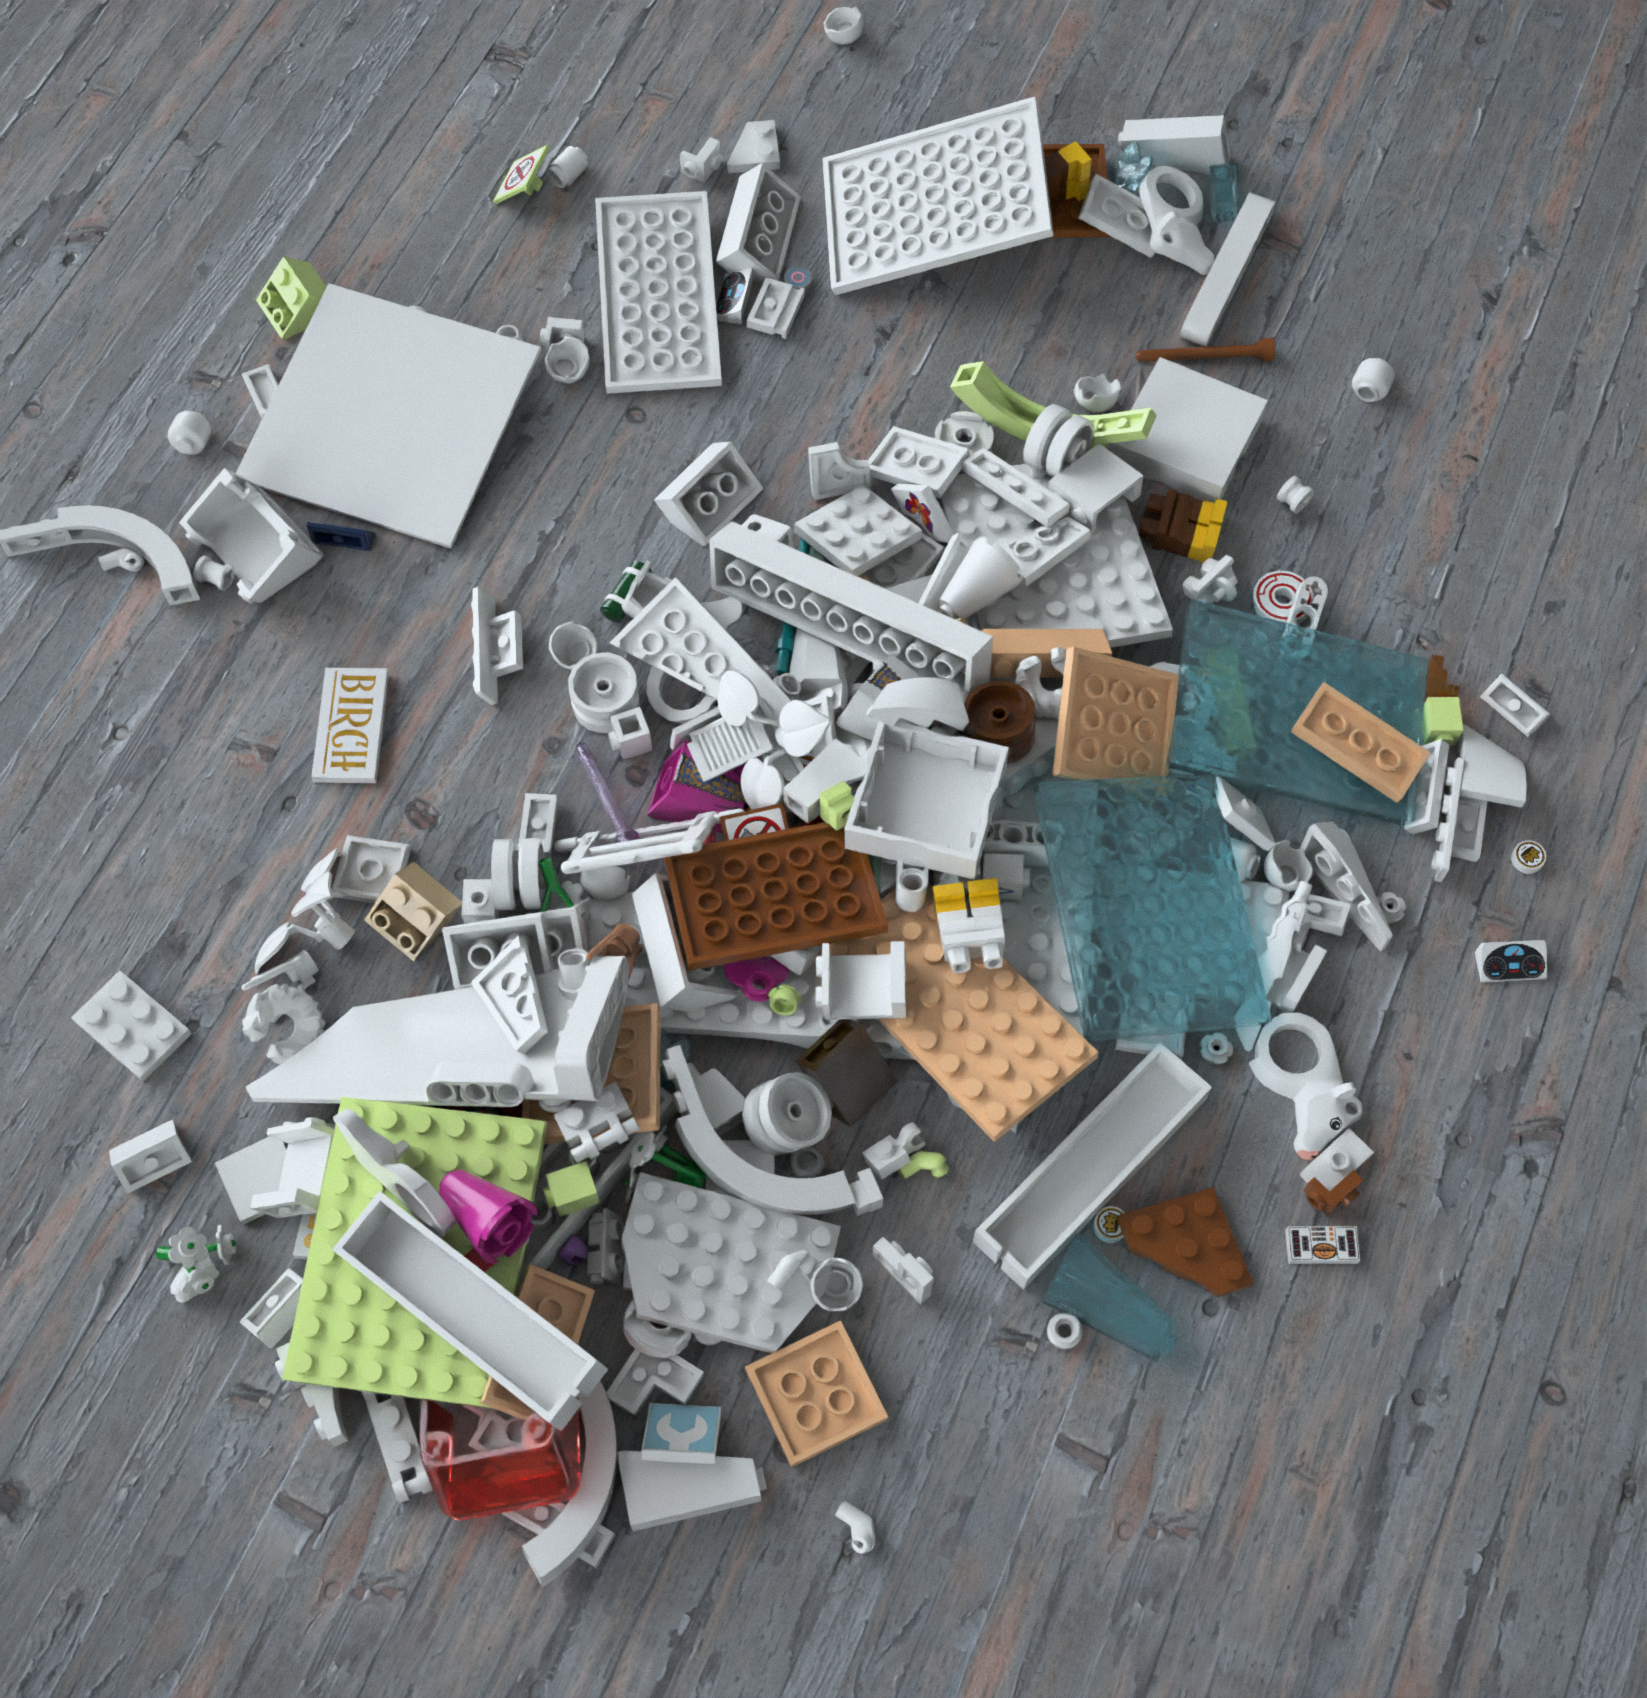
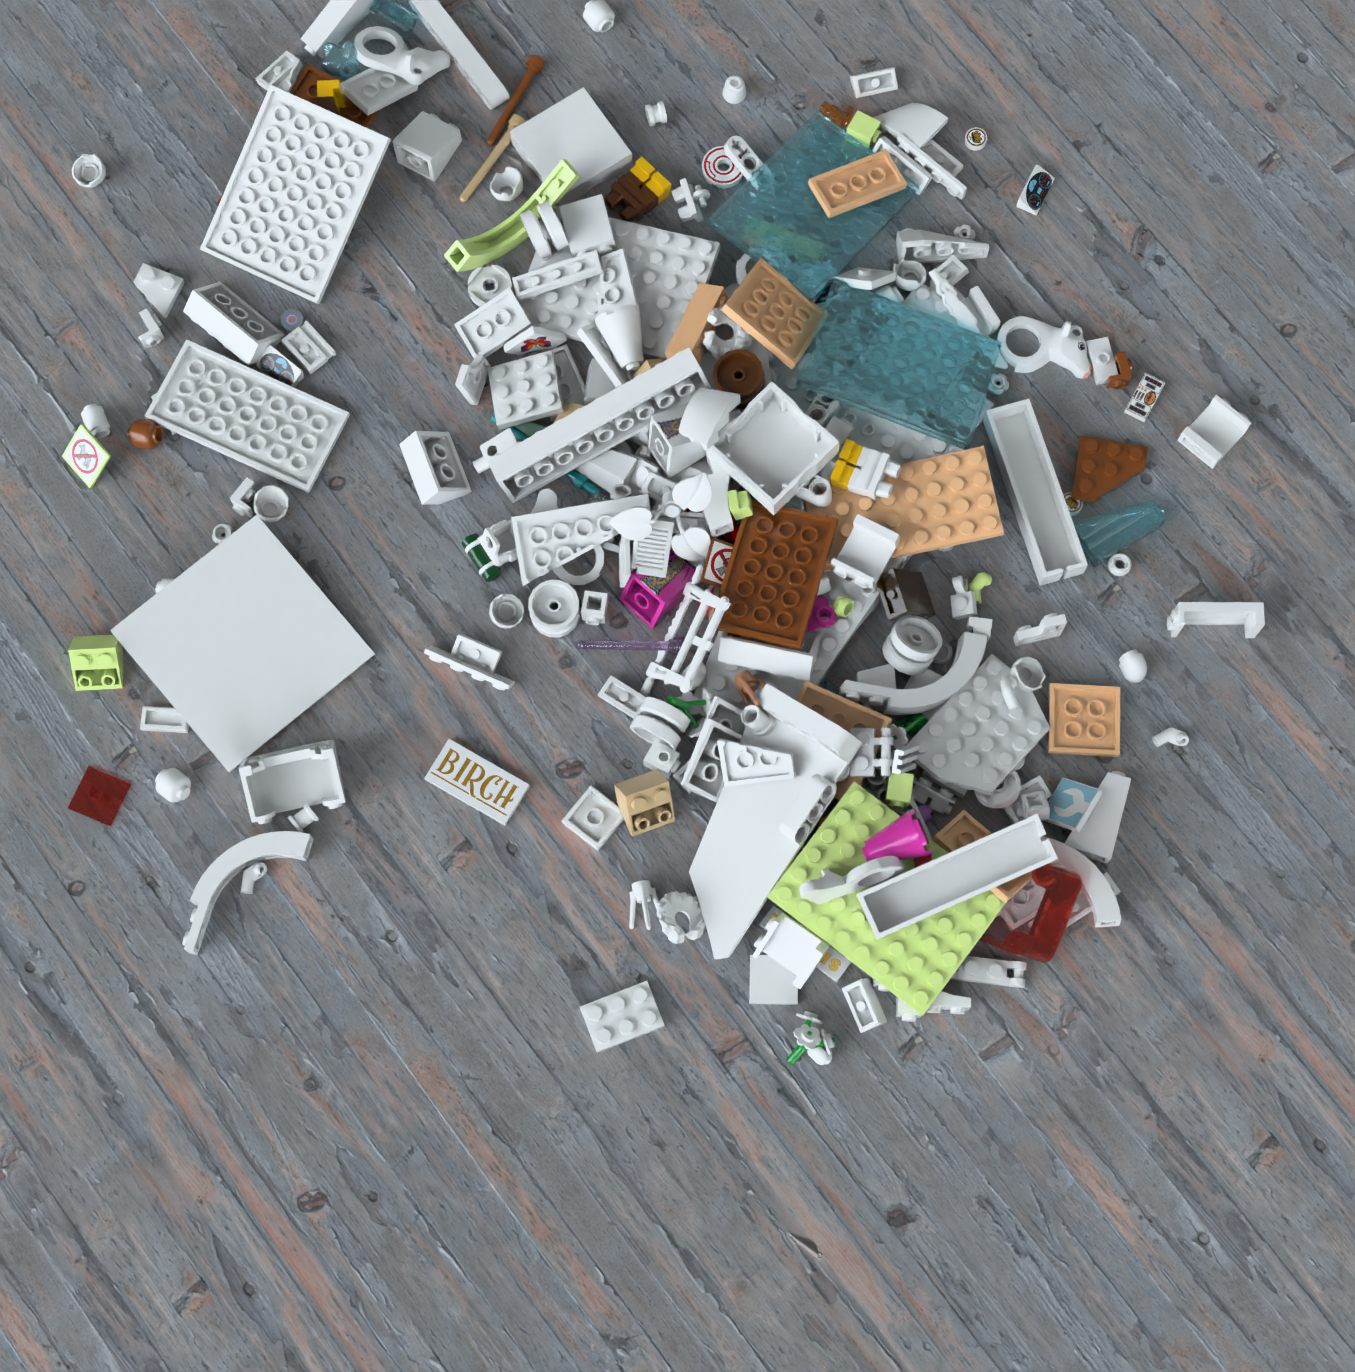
camera: 60 degrees left, 10 degrees up
(147, 379) = (99, 796): none -> clear red piece
(149, 1156) = (721, 1041): white panel -> none
(329, 925) = (626, 853): white plant -> none
(340, 536) = (321, 720): dark blue slope -> none
(579, 213) = (145, 434): none -> dark orange head
(609, 1175) = (904, 763): none -> white tile
(654, 1386) = (1035, 803): none -> white slope
(931, 1423) = (1133, 666): none -> white piece
(1065, 1492) = (1218, 613): none -> white panel
(1070, 127) = (281, 73): none -> white wing
(1090, 293) = (427, 145): none -> white slope
(1110, 365) = (514, 122): none -> tan piece
(1334, 1364) = (1215, 431): none -> white panel
(1388, 561) = (734, 90): none -> white hat

